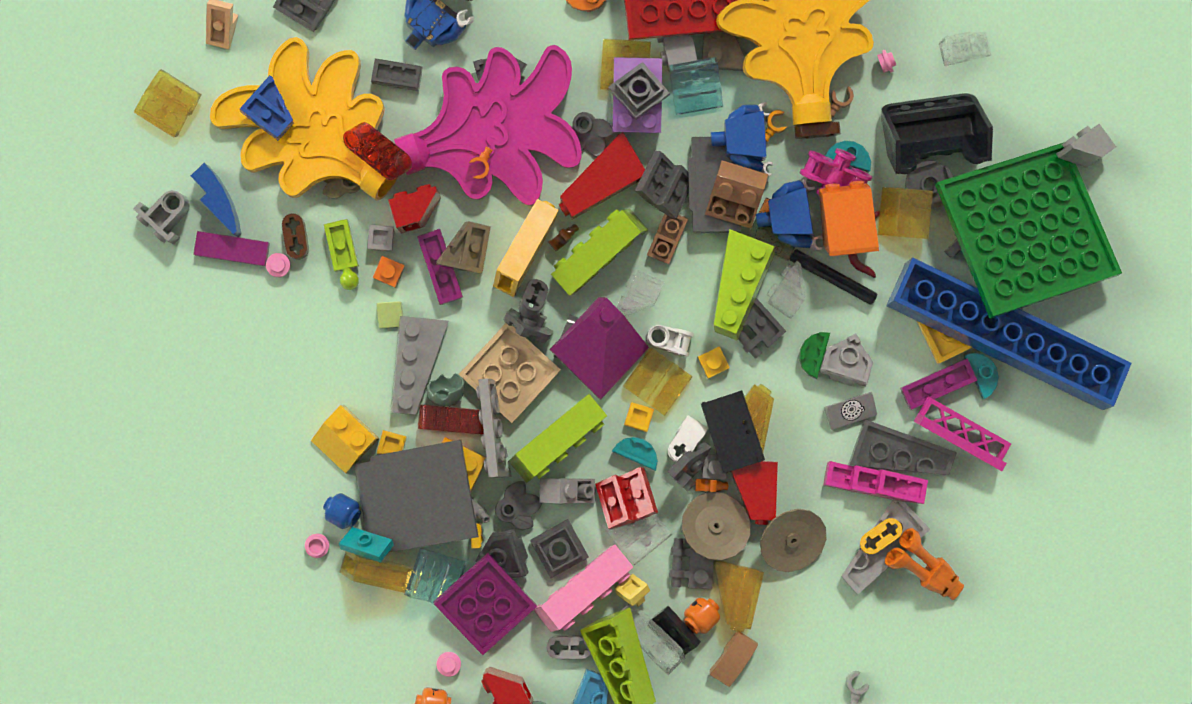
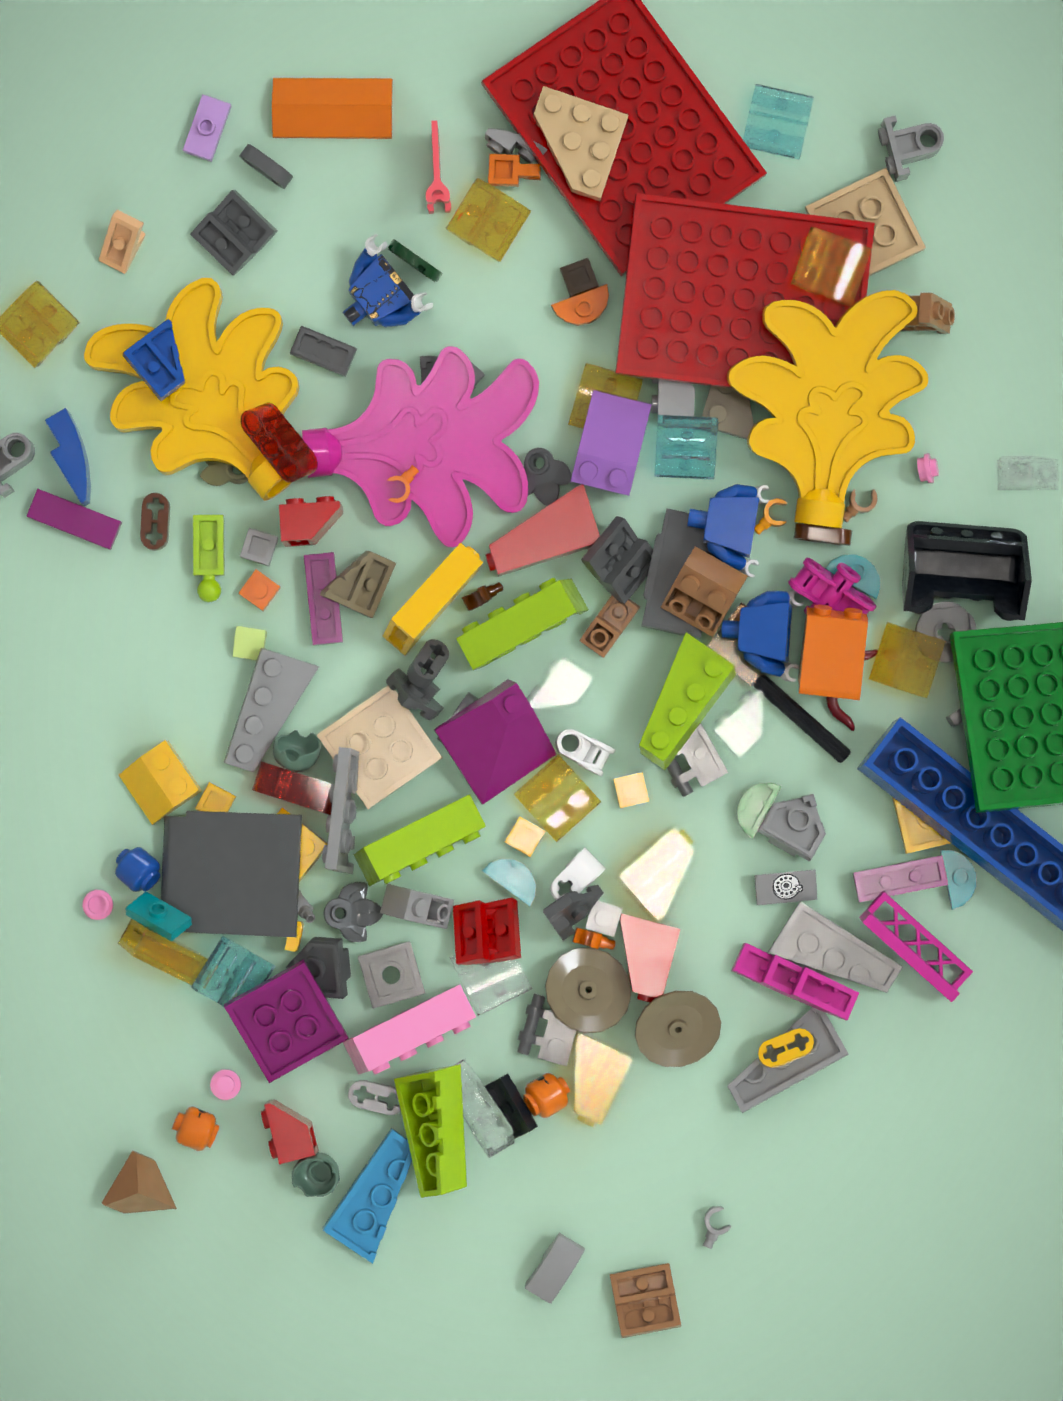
camera: 20 degrees right, 0 degrees up
(278, 265) = (126, 552): bright pink plate -> none
(632, 590) = (469, 1045): light yellow tile -> none
(639, 103) = (611, 455): dark grey piece -> none
(732, 438) = (629, 880): black door -> none
(734, 659) = (573, 1156): medium nougat slope -> none
(937, 574) = (842, 1113): orange piece -> none

